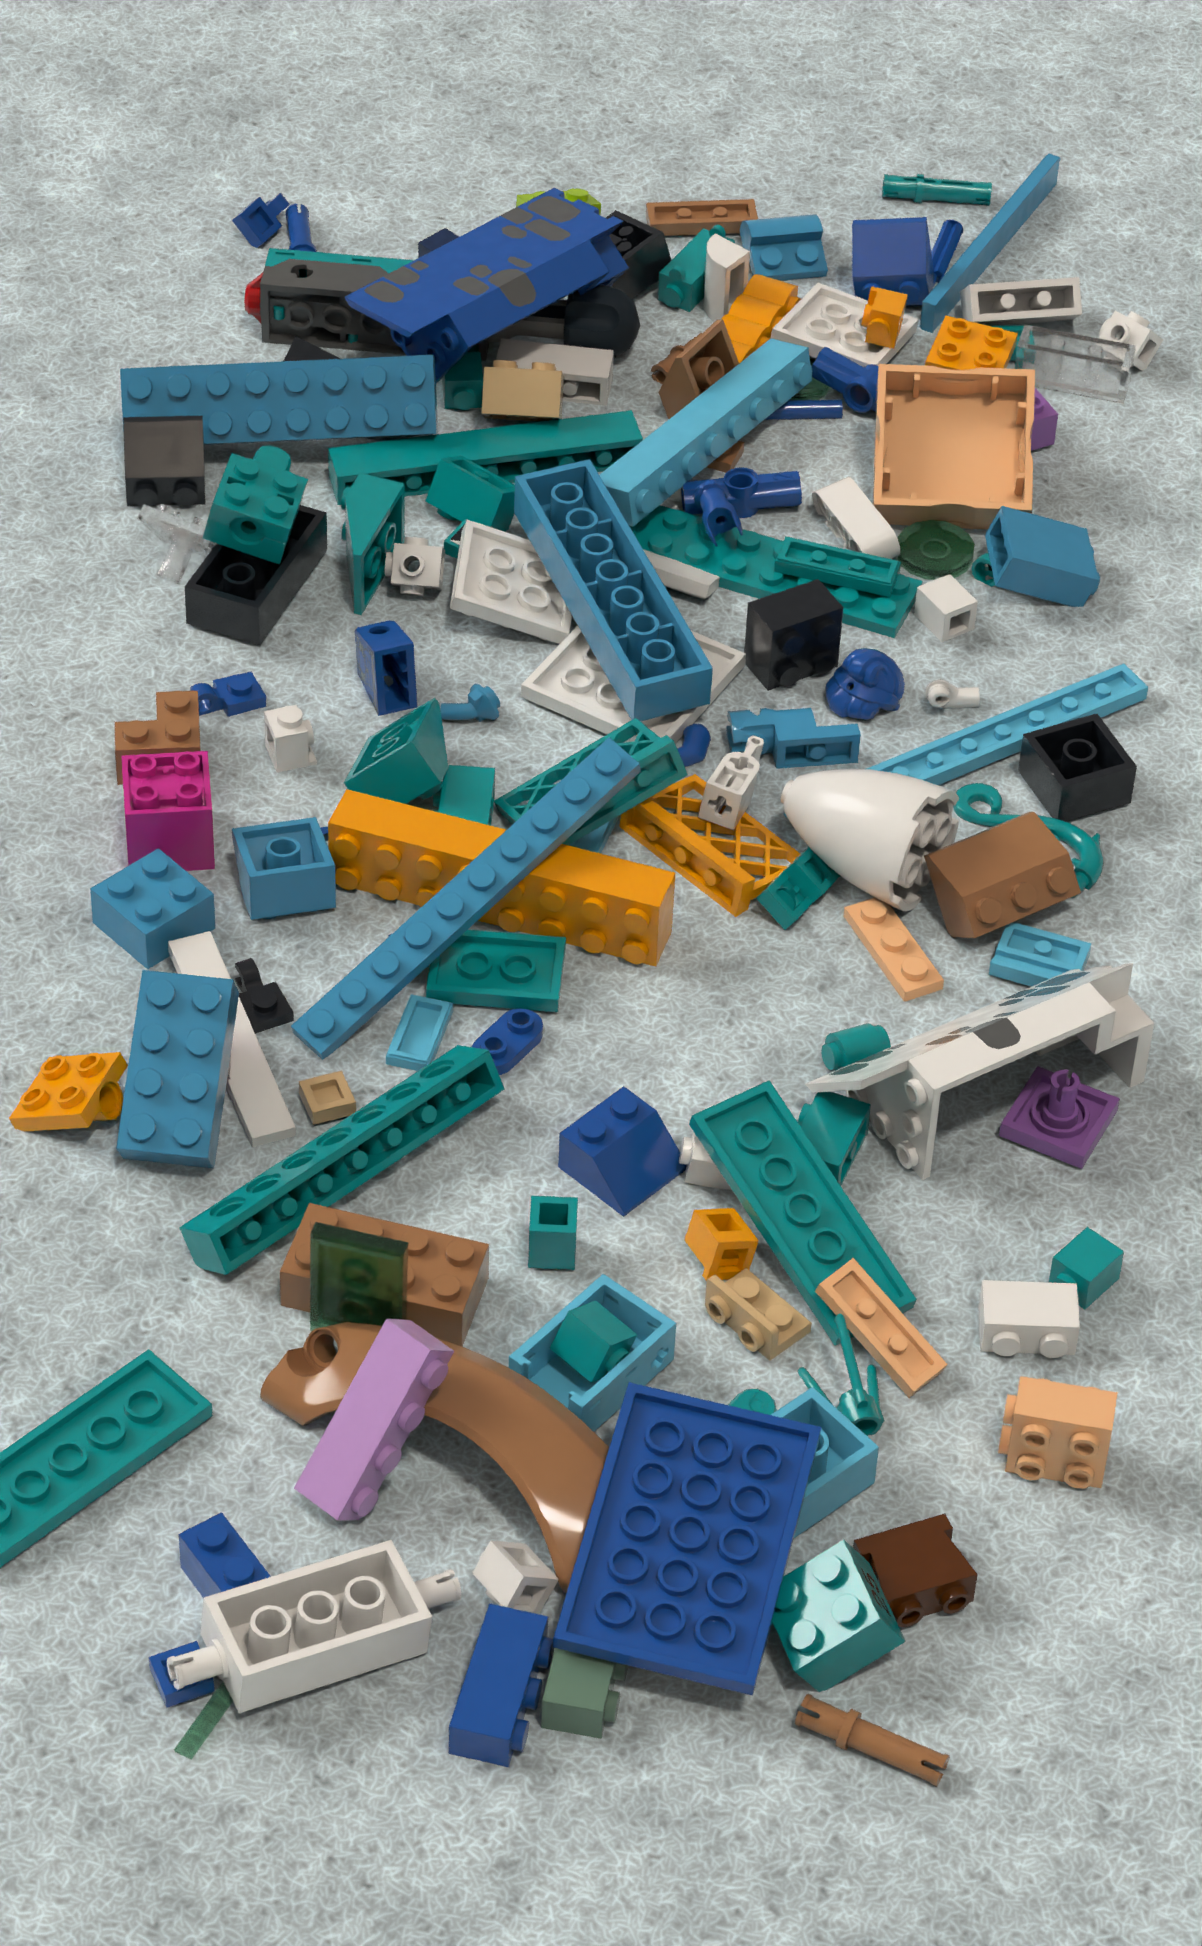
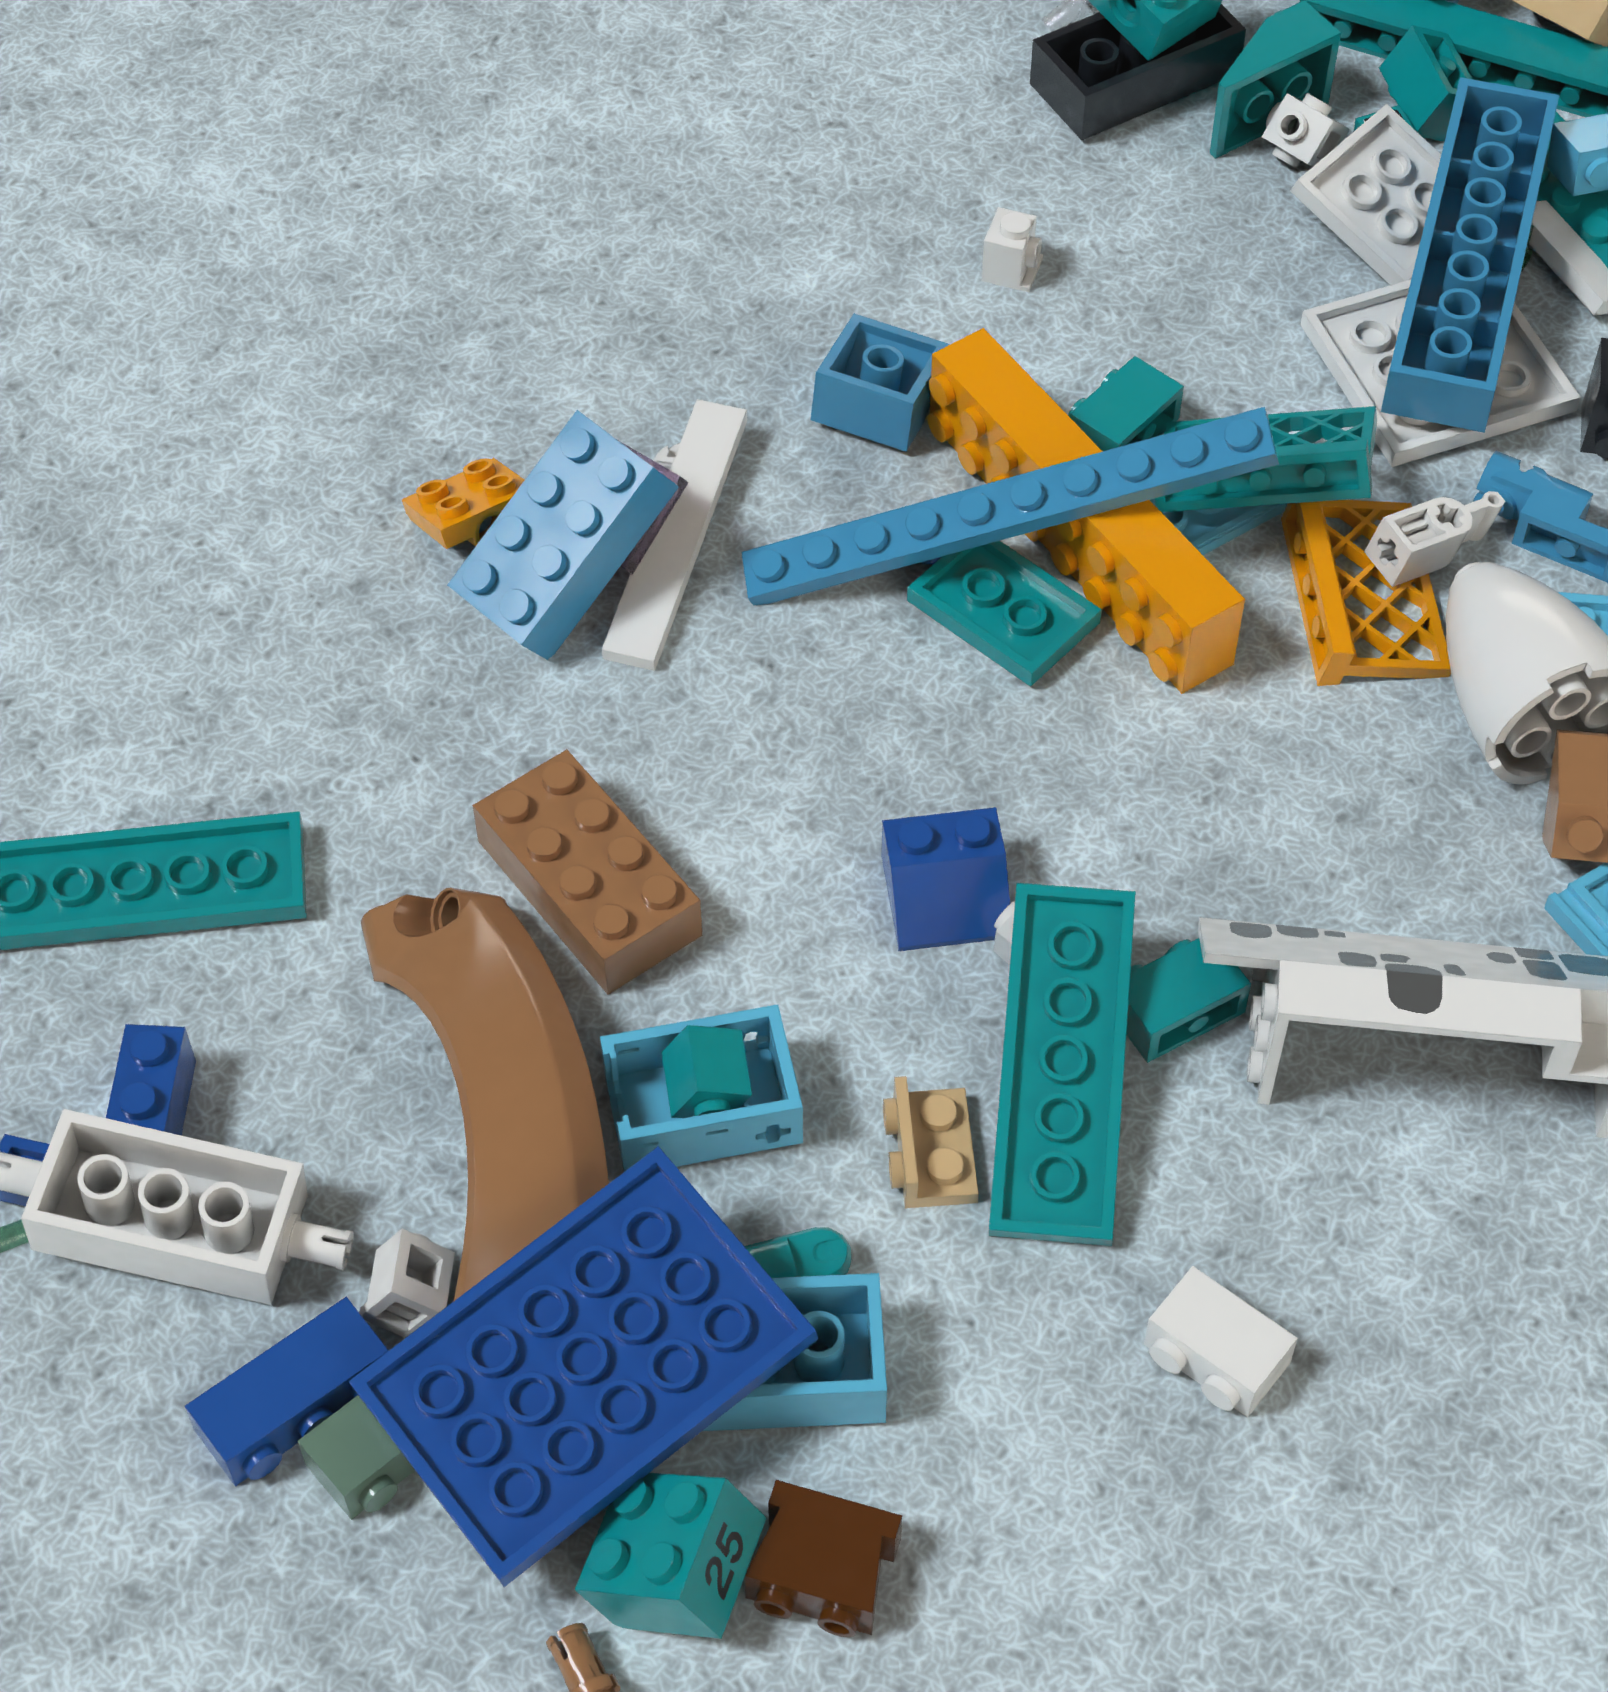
camera: 40 degrees right, 10 degrees up
(150, 906) = (720, 355): dark azure brick -> none
(169, 807) = (812, 264): dark pink brick -> none
(173, 731) = (887, 199): medium nougat brick -> none
(232, 694) = (1006, 180): blue plate -> none
(263, 1004) = (744, 514): black plate -> none
(327, 1097) = (711, 647): tan plate -> none
(341, 1159) = (660, 720): teal brick -> none
(356, 1277) = (519, 864): clear green tile -> none
(374, 1420) = (394, 1021): lavender brick -> none
(386, 651) = (1179, 204): blue torso -> none
(403, 758) = (1090, 332): teal slope -> none
(419, 1033) = (869, 631): medium azure tile -> none
(481, 704) = (1243, 311): dark azure plate -> none
(510, 1041) = (949, 690): blue plate -> none
(552, 1232) = (788, 925): teal brick -> none
(694, 744) = (1431, 475): blue arm -> none
(721, 1242) = (958, 1043): light orange brick -> none
(797, 888) = (1402, 690): teal slope -> none
(853, 1044) = (1307, 904): teal brick -> none
(854, 1404) = (935, 1329): teal plant -> none
(881, 1327) = (1035, 1249): light nougat plate -> none
(893, 948) = (1458, 819): light nougat plate -> none
(1058, 1432) = (1116, 1504): light nougat brick -> none
(1059, 1116) = (1473, 1124): medium lavender plate -> none
(1089, 1263) = (1338, 1323): teal brick -> none

